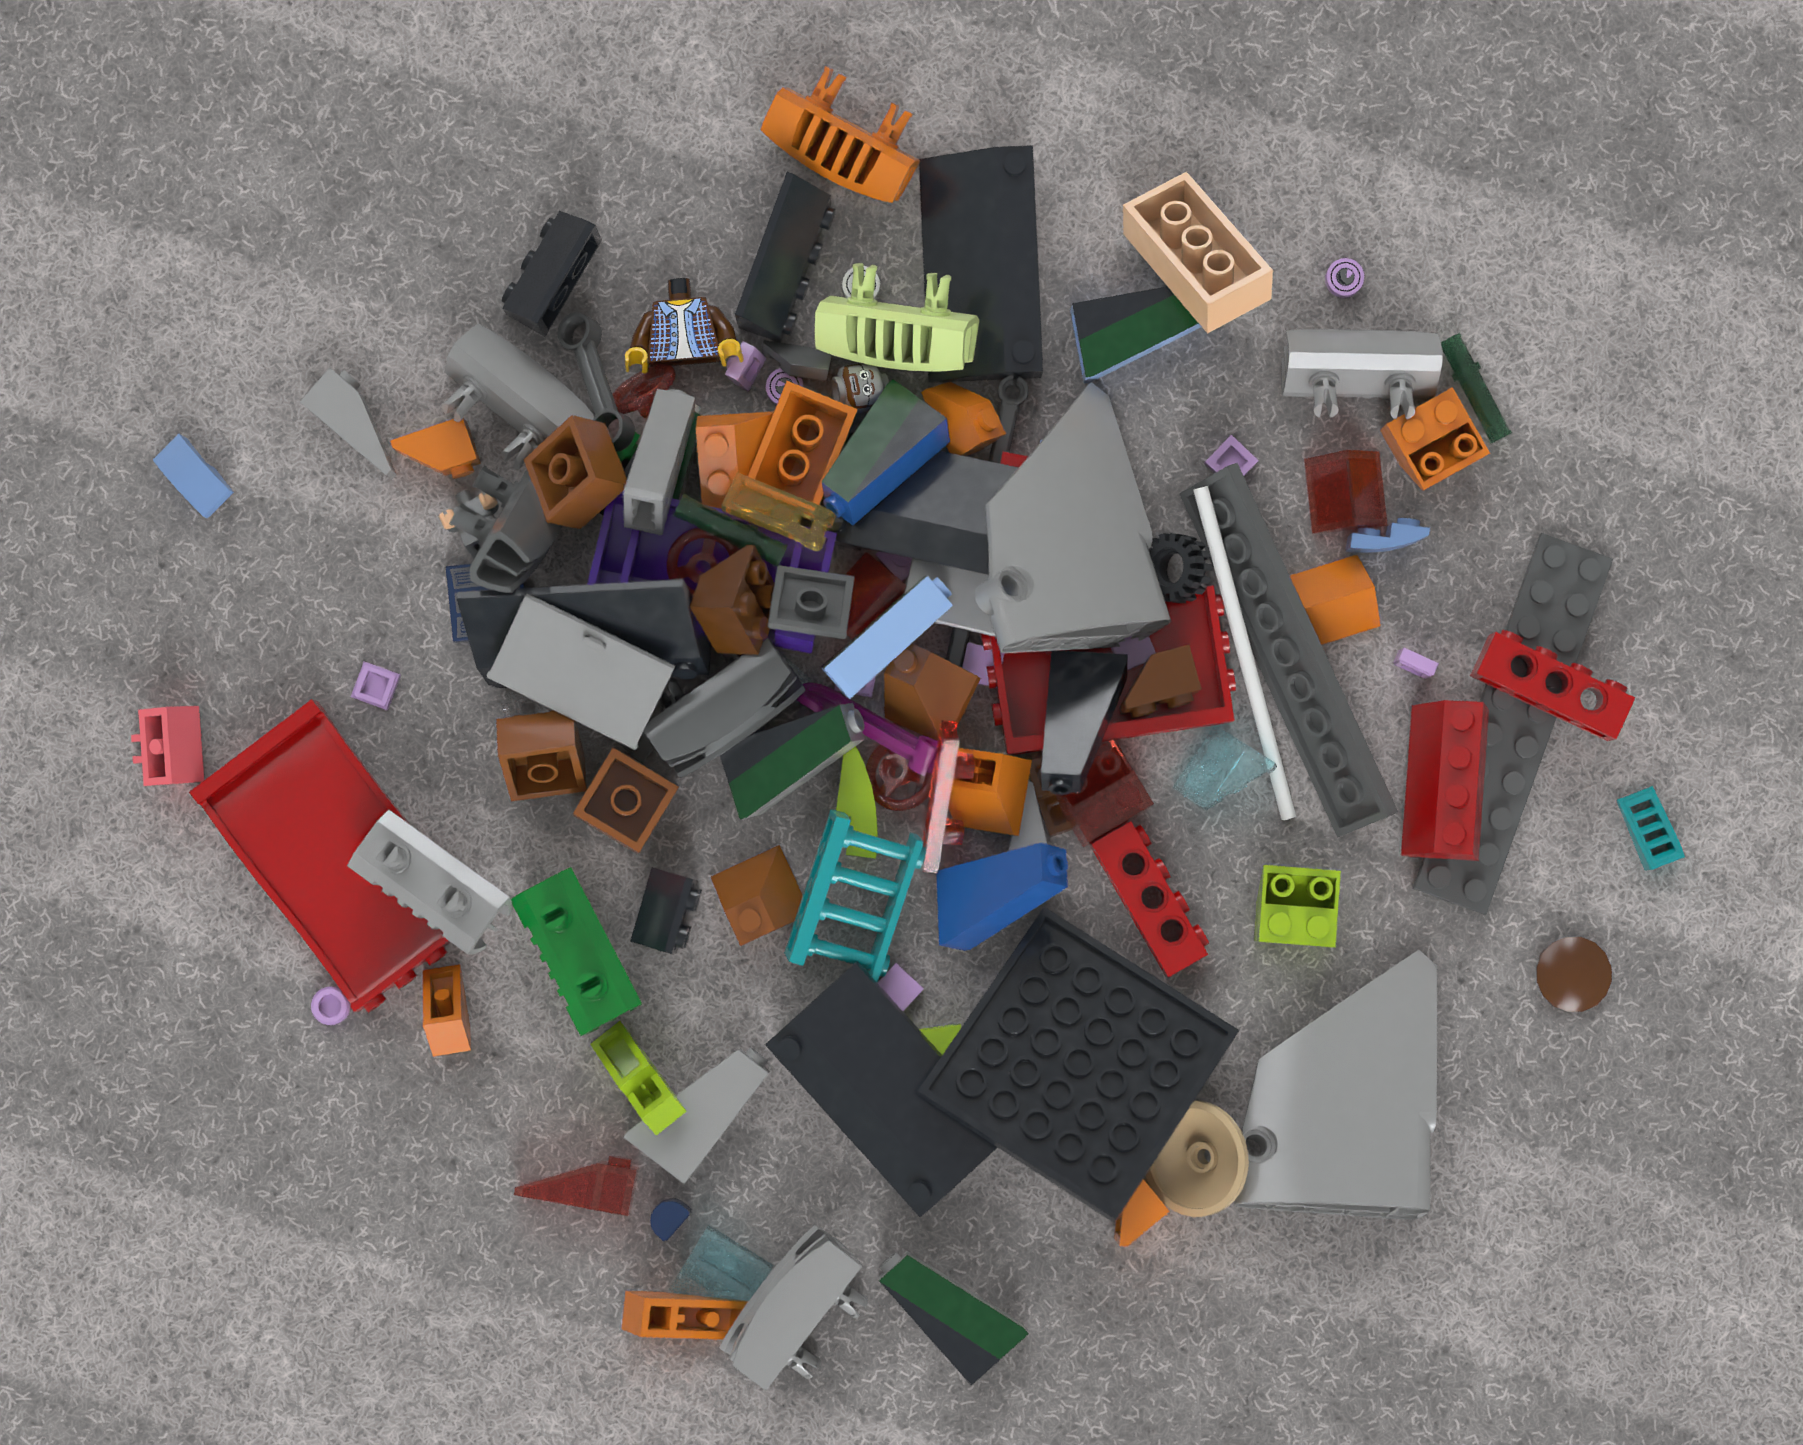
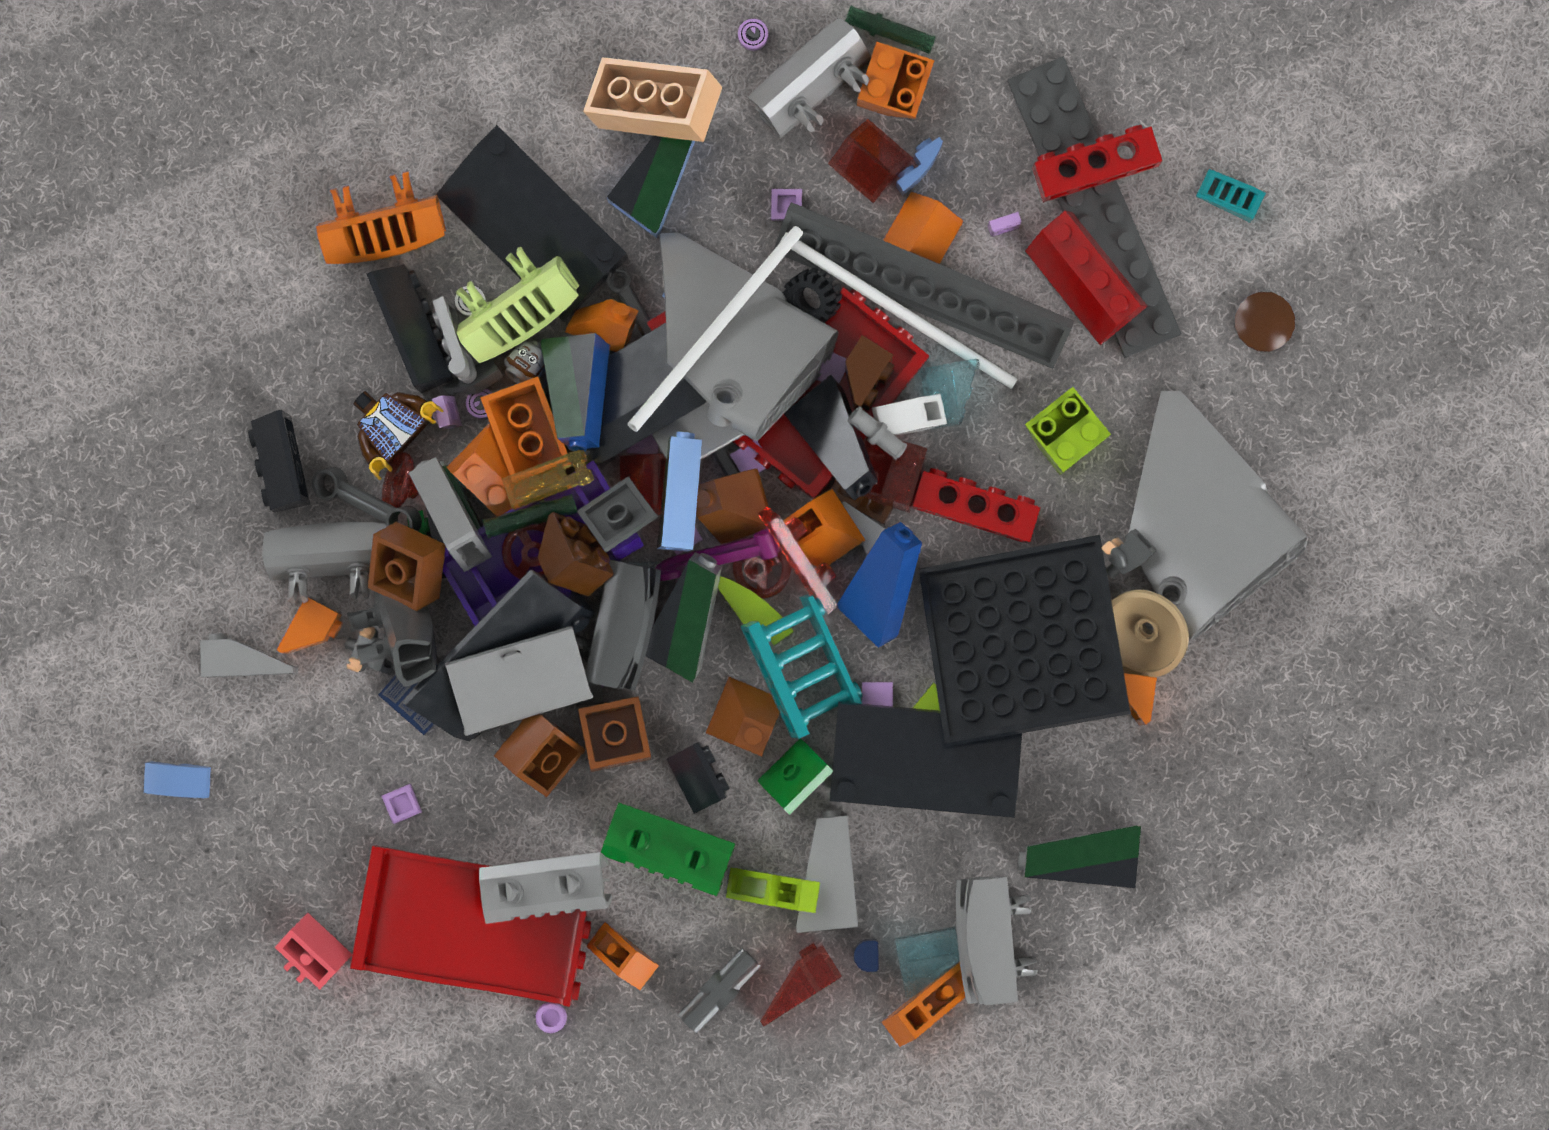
camera: 35 degrees left, 0 degrees up
(505, 1123) = (719, 990): none -> dark grey piece
(754, 992) = (794, 776): none -> green plate
(822, 283) = (447, 321): none -> light grey plate
(1057, 514) = (715, 329): none -> white piece
(1120, 747) = (877, 433): none -> light grey pin
(1164, 759) = (912, 414): none -> white slope
(1247, 1073) = (1129, 554): none -> dark grey piece

